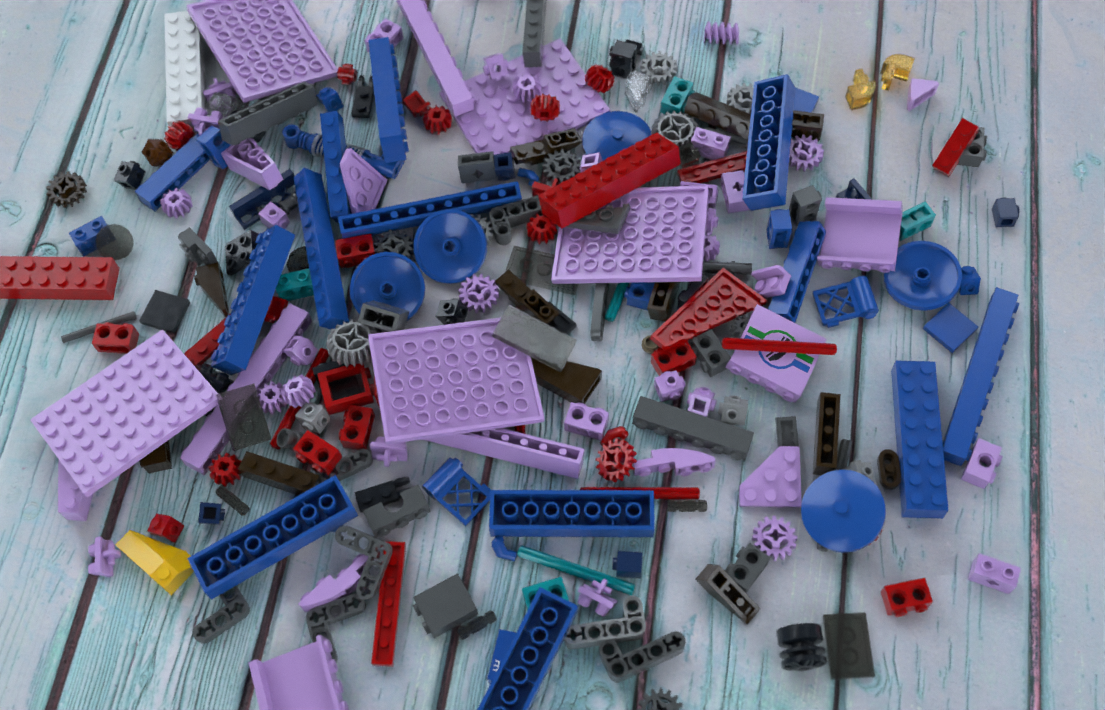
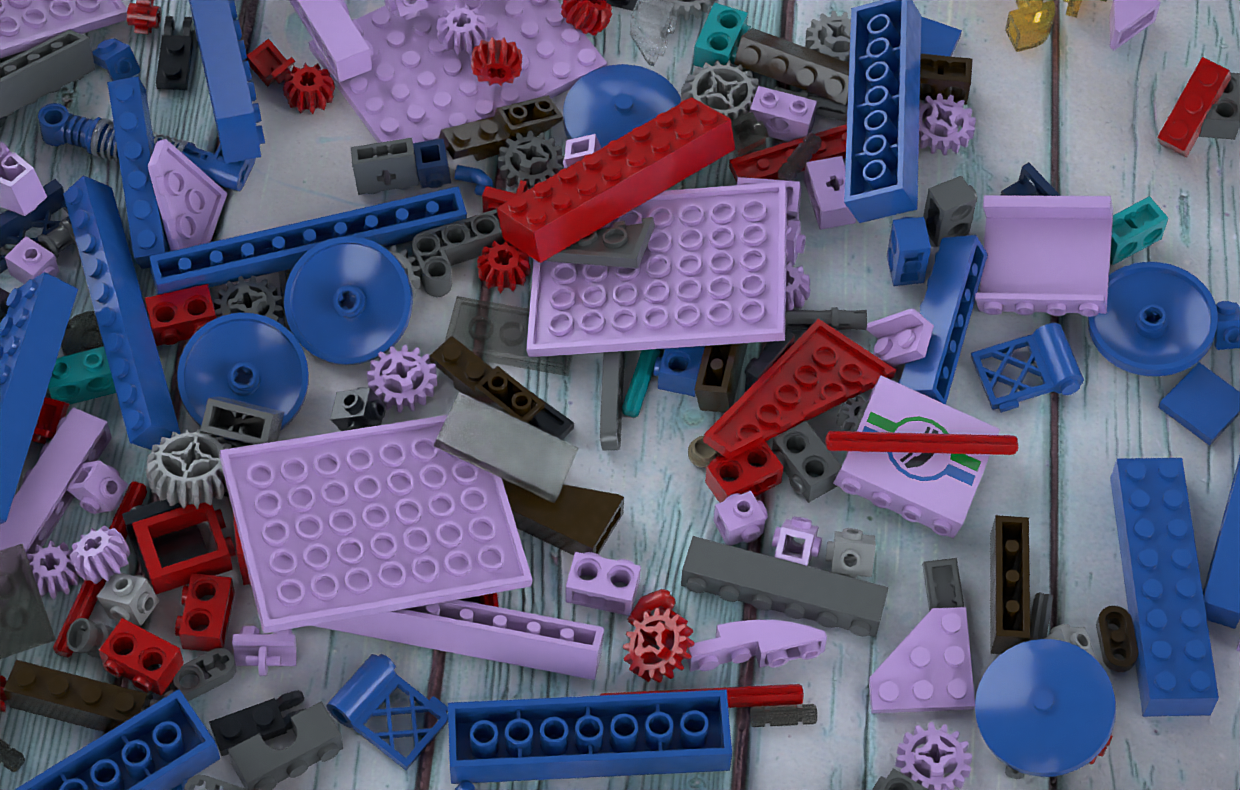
camera: 10 degrees left, 5 degrees down
(717, 171) = (799, 157): none -> clear smoke axle

